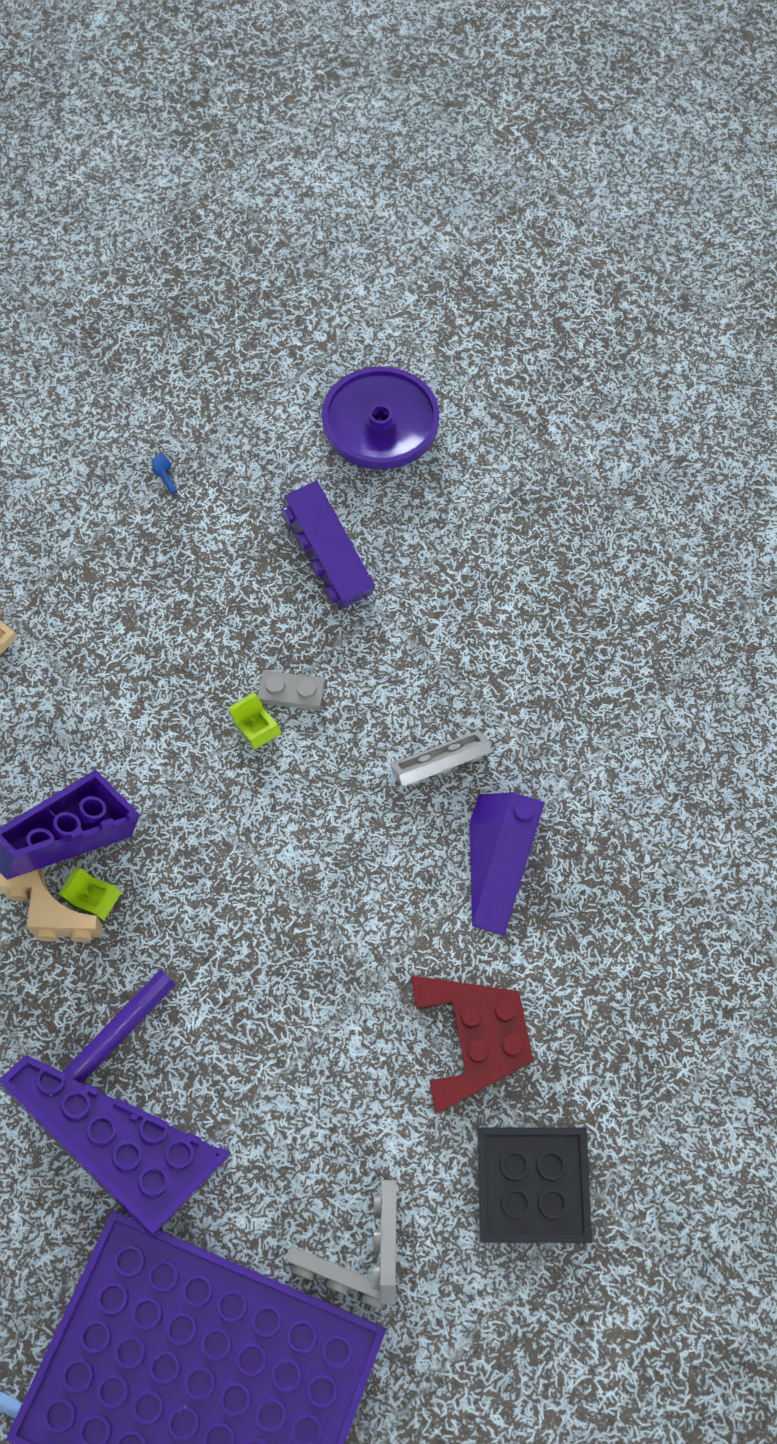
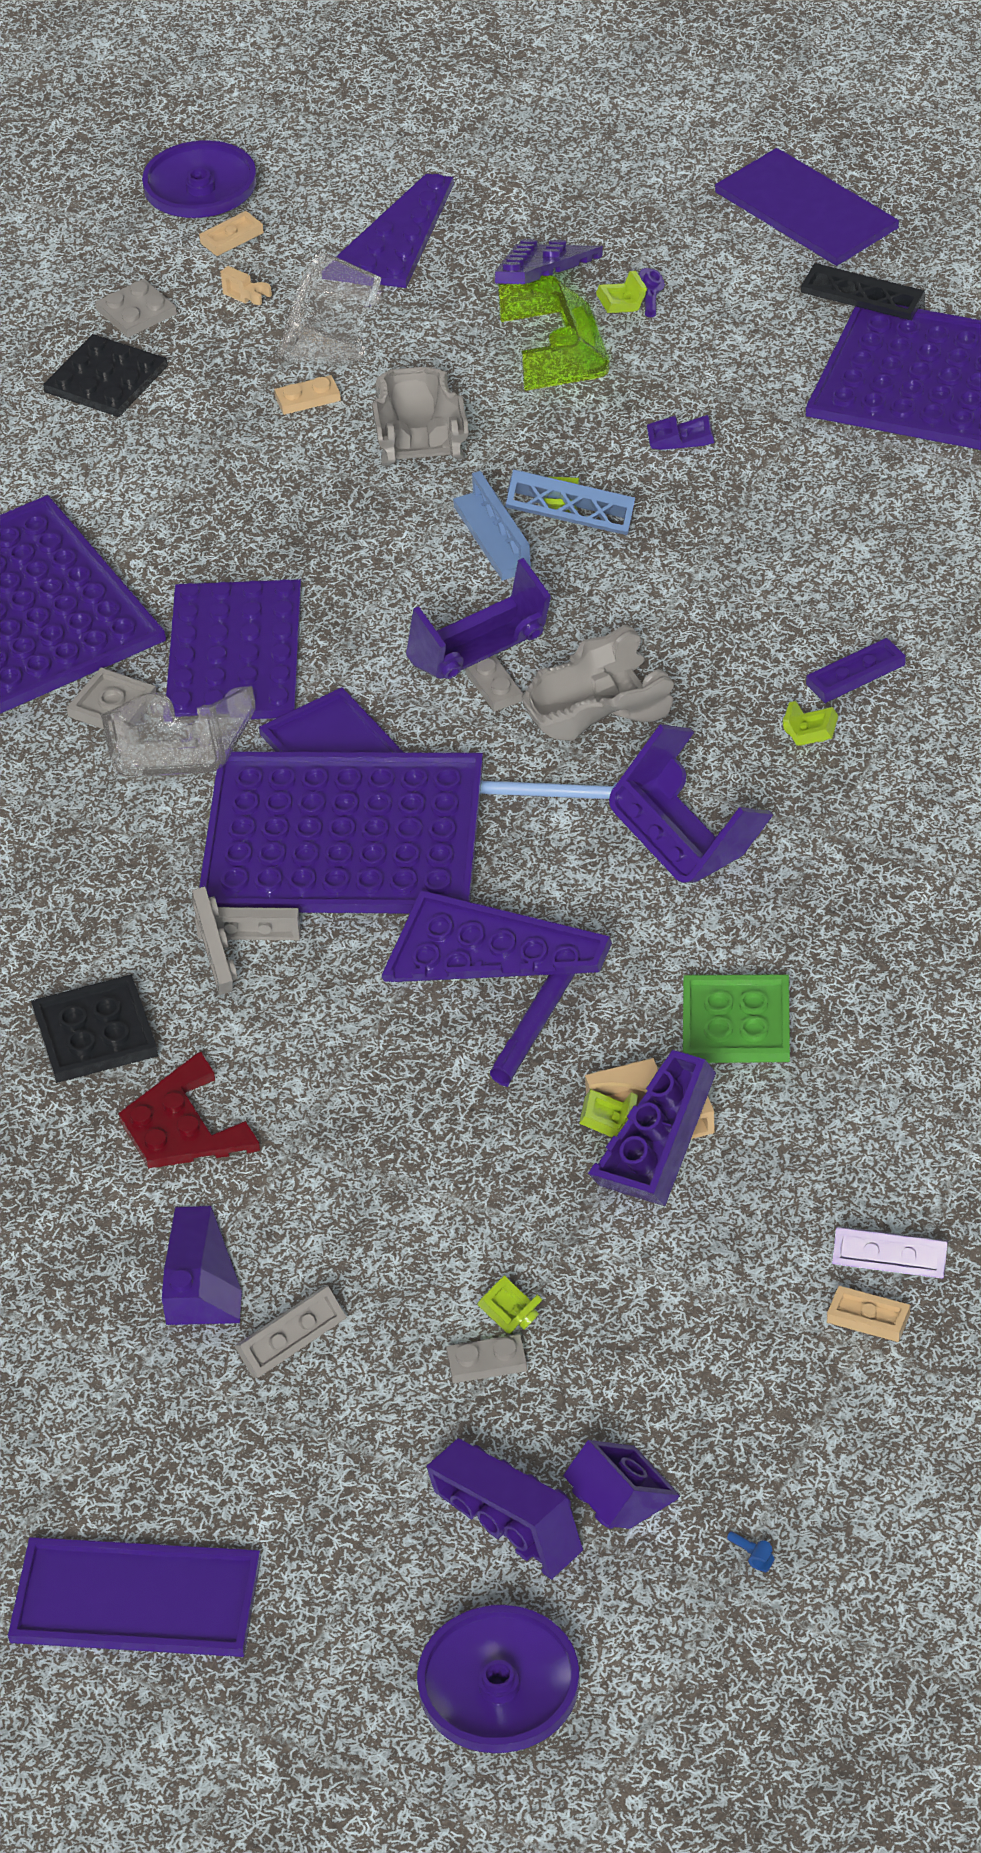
camera: 165 degrees right, 20 degrees down
(234, 541) = (618, 1484): none -> dark purple slope
(621, 574) = (135, 1597): none -> dark purple tile

